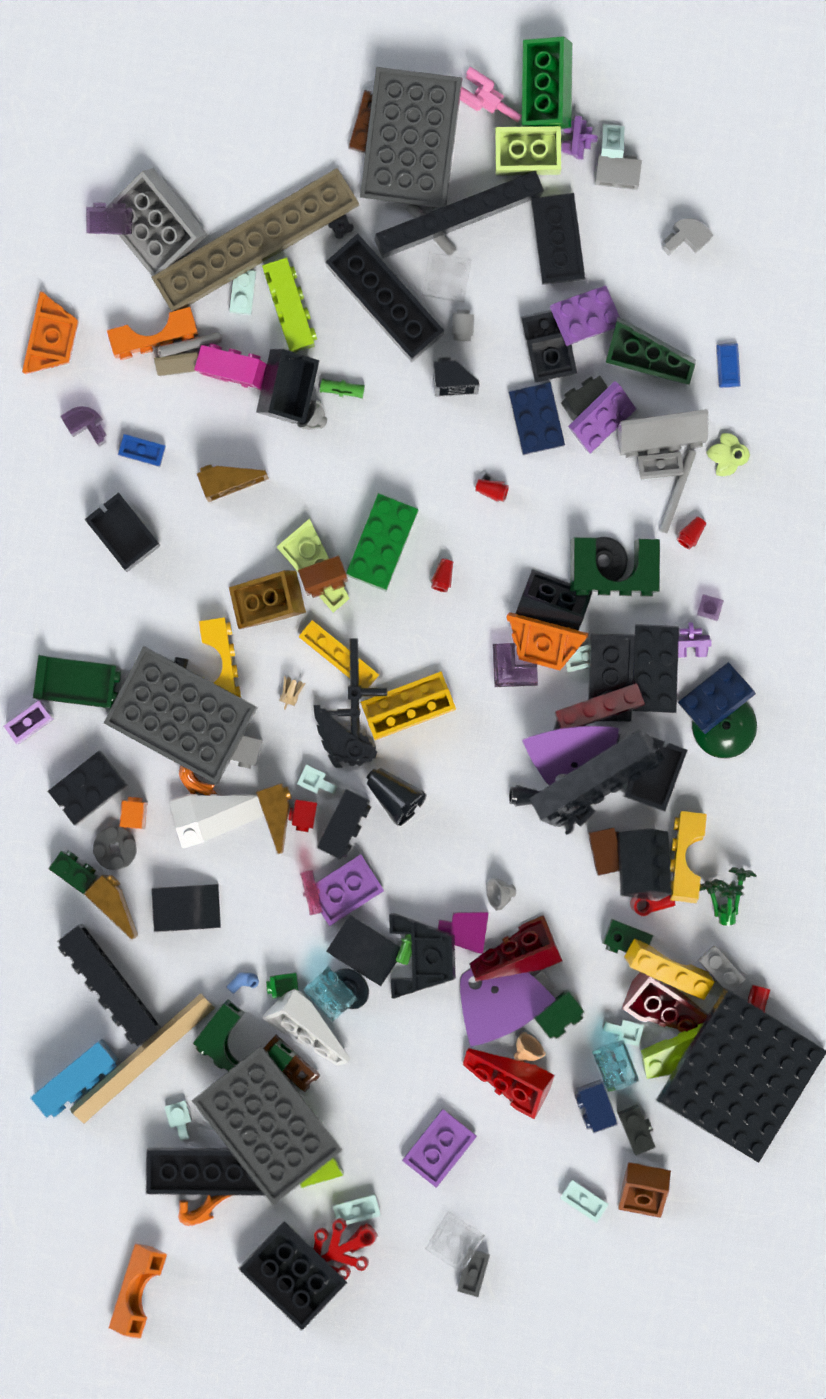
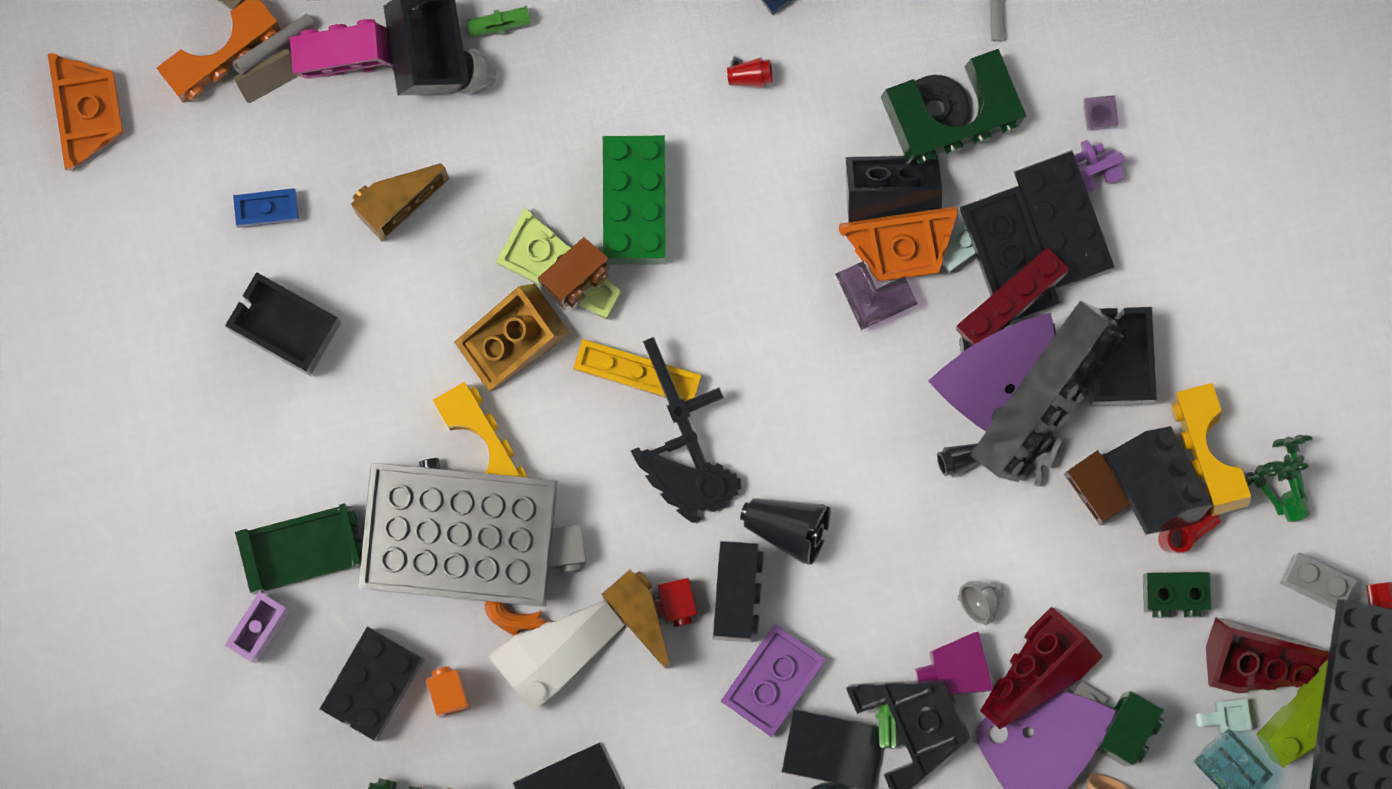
camera: 20 degrees left, 5 degrees down
(84, 418) = (171, 196): clear purple brick -> none
(117, 860) = (450, 766): dark grey plate -> none
(290, 691) = (592, 445): tan piece -> none
(311, 892) = (729, 701): clear pink pin -> none
(314, 780) = (670, 550): light aqua plate -> none
(408, 706) = (757, 400): yellow brick -> none
(442, 577) = (732, 213): red cone -> none
(653, 963) = (1242, 609): yellow arch -> none
(691, 533) = (1035, 26): red cone -> none
(716, 698) = (1159, 226): dark blue plate -> none
(729, 742) = (1169, 274): dark green dish -> none

